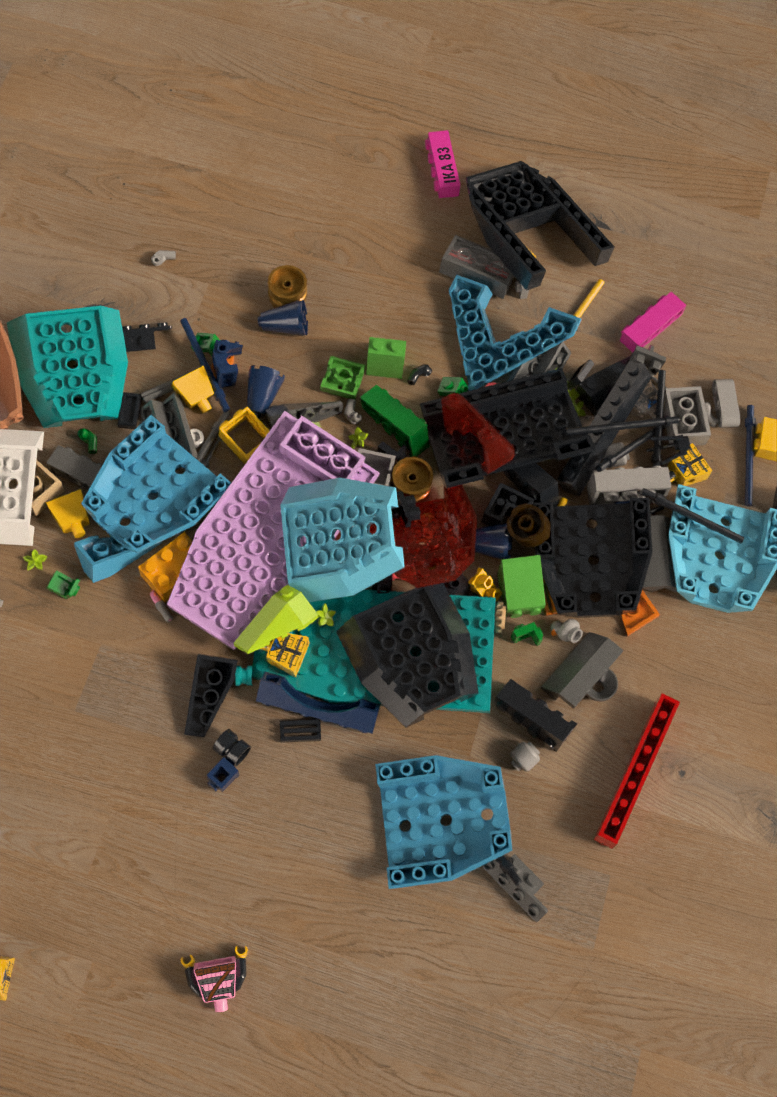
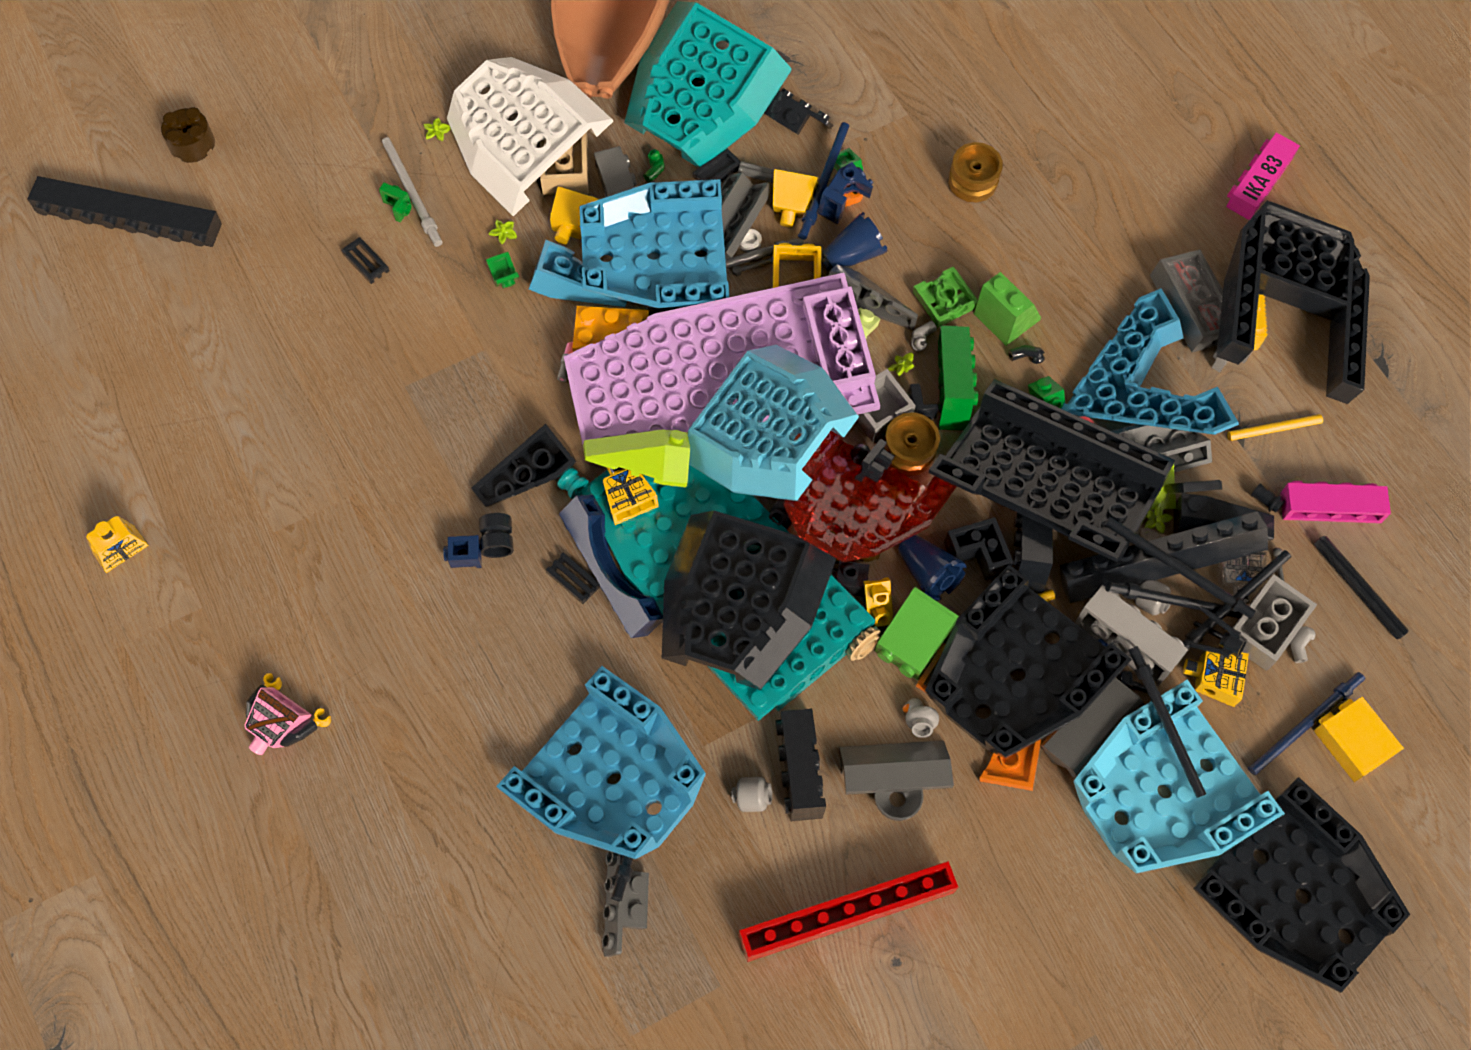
camera: 50 degrees right, 0 degrees up
(161, 256) = (887, 55): light grey arm -> none
(286, 319) = (946, 200): dark blue cone -> none
(325, 616) = (695, 493): lime plant -> none
(463, 416) = (1021, 456): clear red windscreen -> none
(519, 526) = (976, 578): dark brown brick -> none
(525, 631) = (876, 680): green bracket -> none
(623, 348) = (1268, 498): none -> black pin
(648, 358) = (1289, 531): dark grey hips -> none
(706, 358) = (1361, 587): none -> black axle
(726, 403) = (1334, 649): light grey beam -> none

